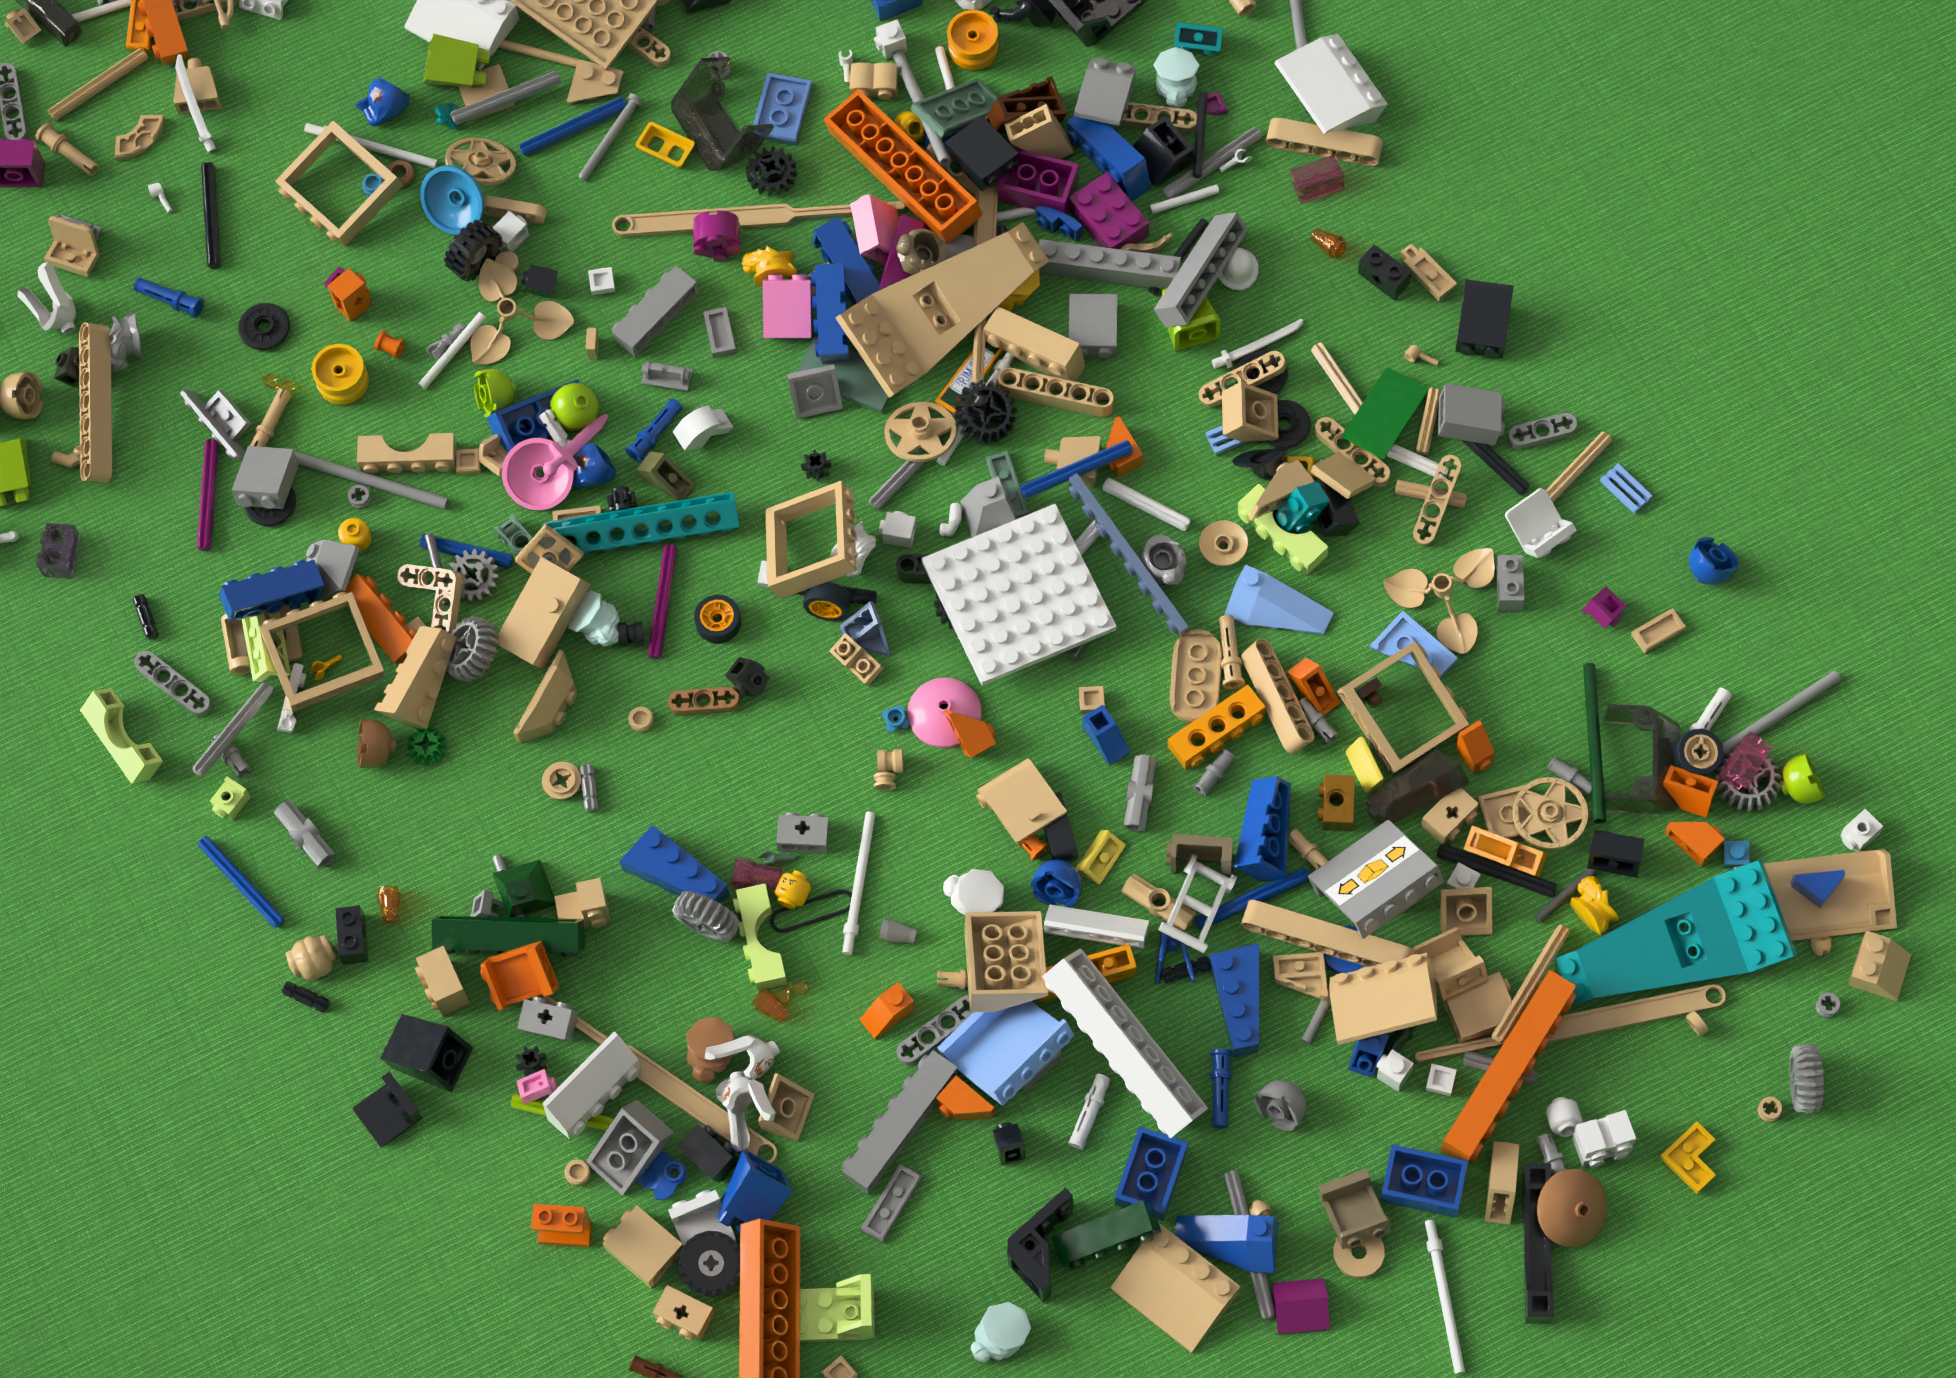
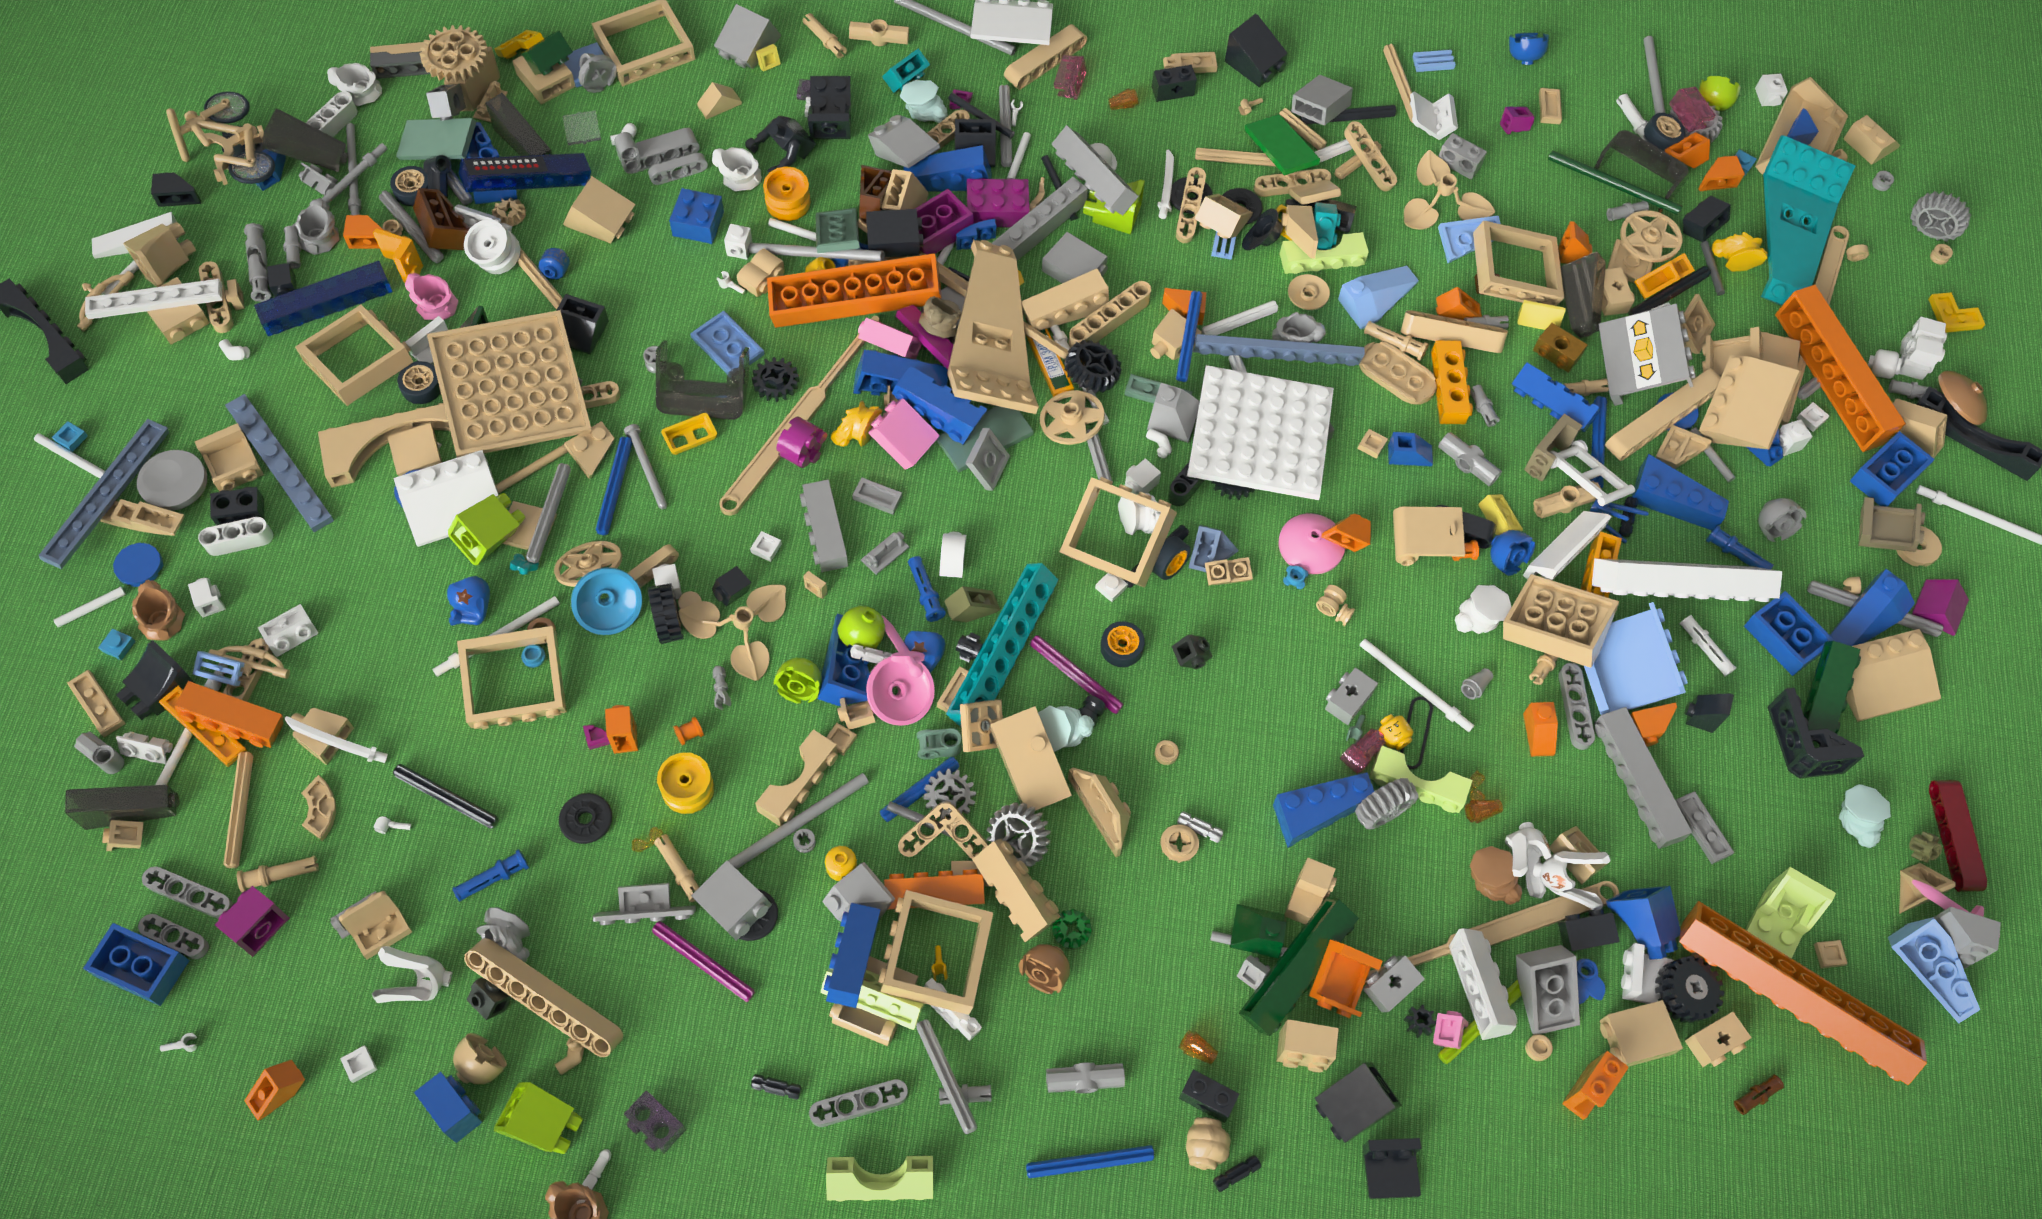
camera: 65 degrees left, 5 degrees down
(237, 801) = (998, 1114): yellowish green brick -> none
(452, 350) = (733, 689): white bar -> none
(721, 693) = (1184, 708): medium nougat beam -> none
(816, 471) = (1045, 499): black gear -> none
(1523, 430) = (1356, 69): light grey beam -> none
(1530, 984) = (1778, 320): tan axle -> none

